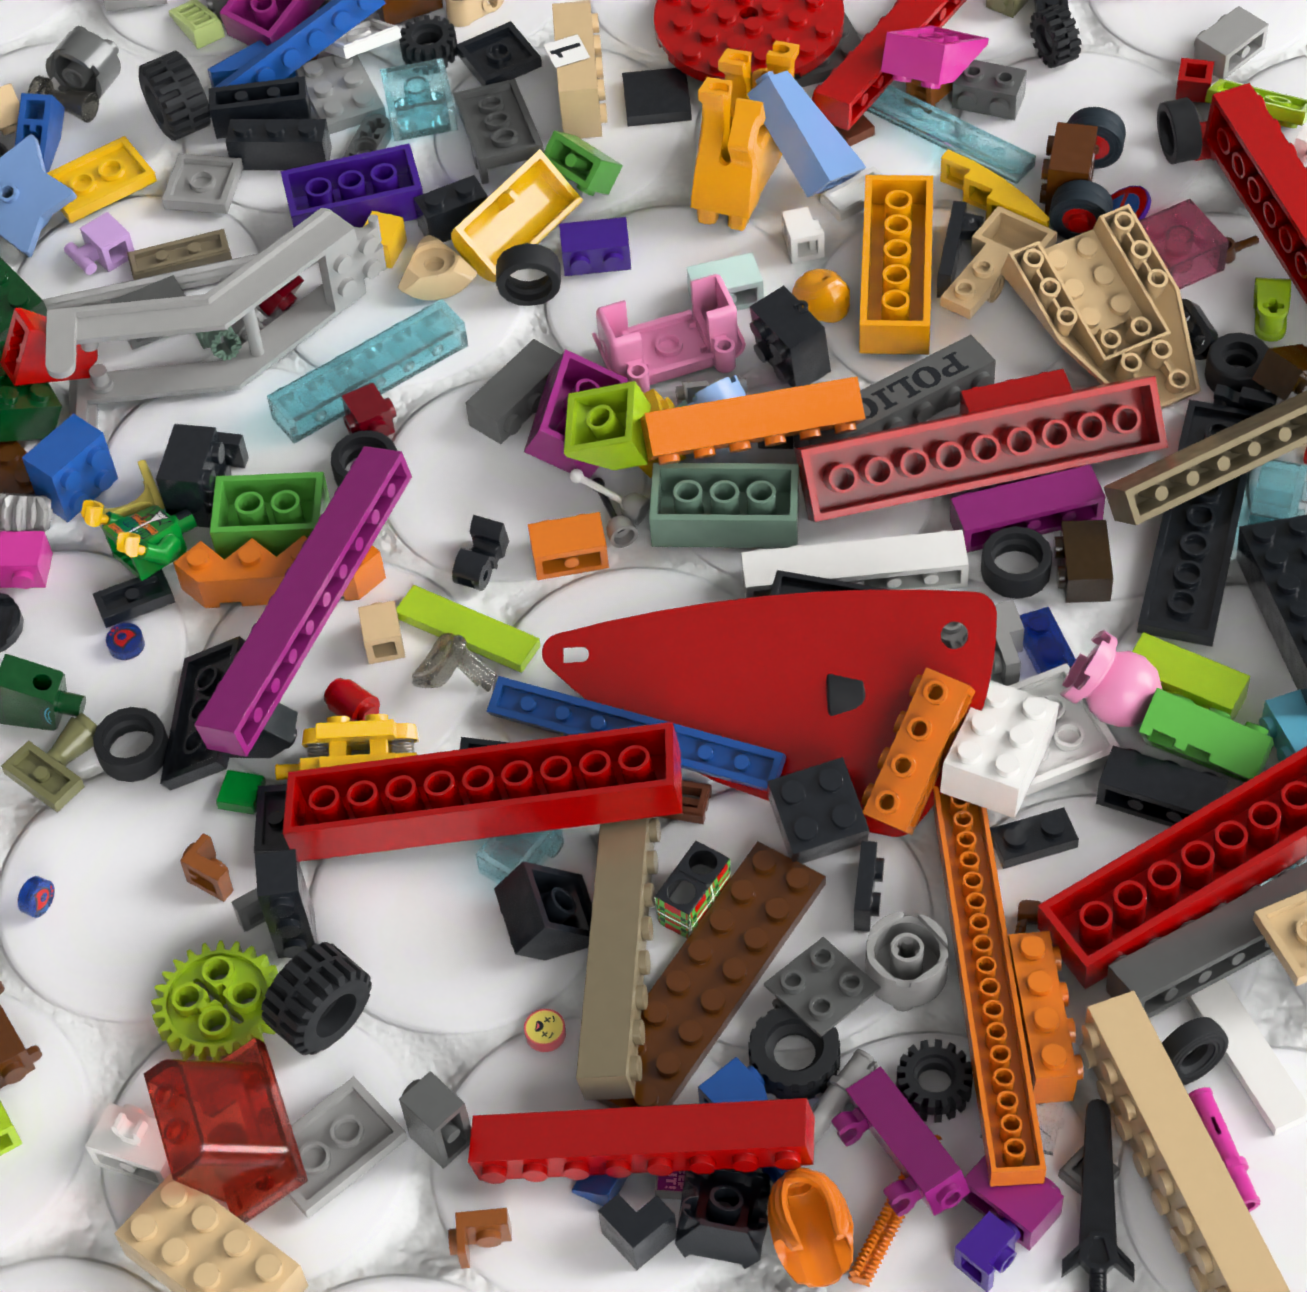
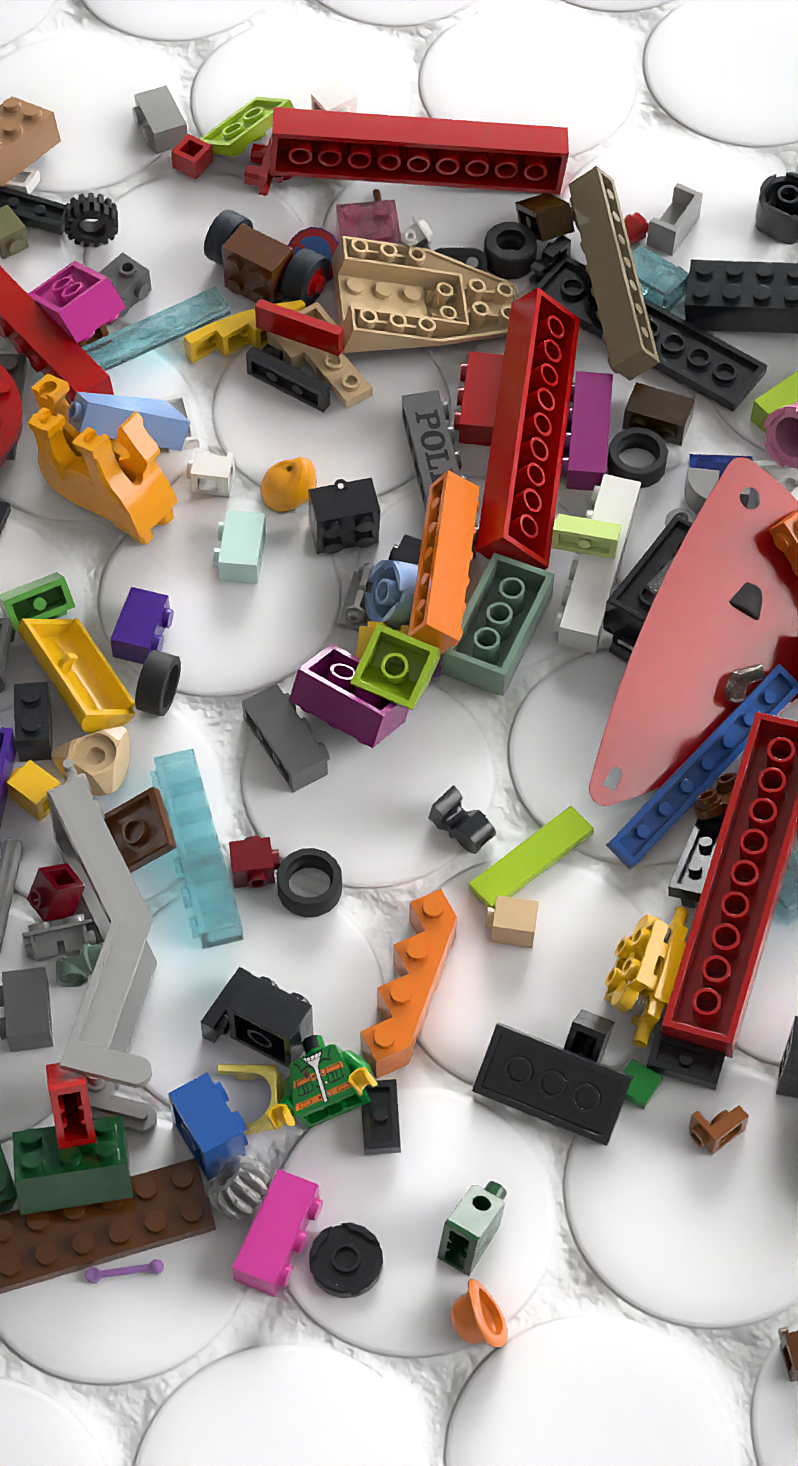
camera: 75 degrees left, 5 degrees up
(36, 896) = (695, 1279): clear blue tile -> none
(43, 776) = (558, 1244): olive plate -> none
(74, 739) = (527, 1205): olive cone -> none
(123, 722) = (553, 1132): black tyre -> none
(125, 641) = (424, 1139): clear blue tile -> none
(248, 910) = (773, 1099): dark grey tile -> none
(266, 508) = (347, 969): bright green brick -> none
(303, 602) = (493, 952): magenta brick -> none
(350, 700) = (582, 966): red brick -> none
(363, 320) = (141, 829): none -> reddish brown tile
(444, 657) = (582, 867): clear smoke piece -> none
(568, 546) = (481, 752): orange brick -> none
(620, 528) = (476, 711): light grey hinge -> none
(633, 505) = (459, 693): hinge -> none
(675, 342) = (292, 598): bright pink container -> none
(745, 725) = (739, 680): none -> clear smoke arm
(865, 534) = (586, 536): none -> yellowish green panel
(896, 265) = (290, 417): light orange brick -> none
(999, 220) = (299, 327): none -> red tile
(1179, 130) = (254, 170): black tyre -> none
(1194, 276) = (417, 234): none -> white hinge
(1271, 307) = (455, 204): lime piece -> none

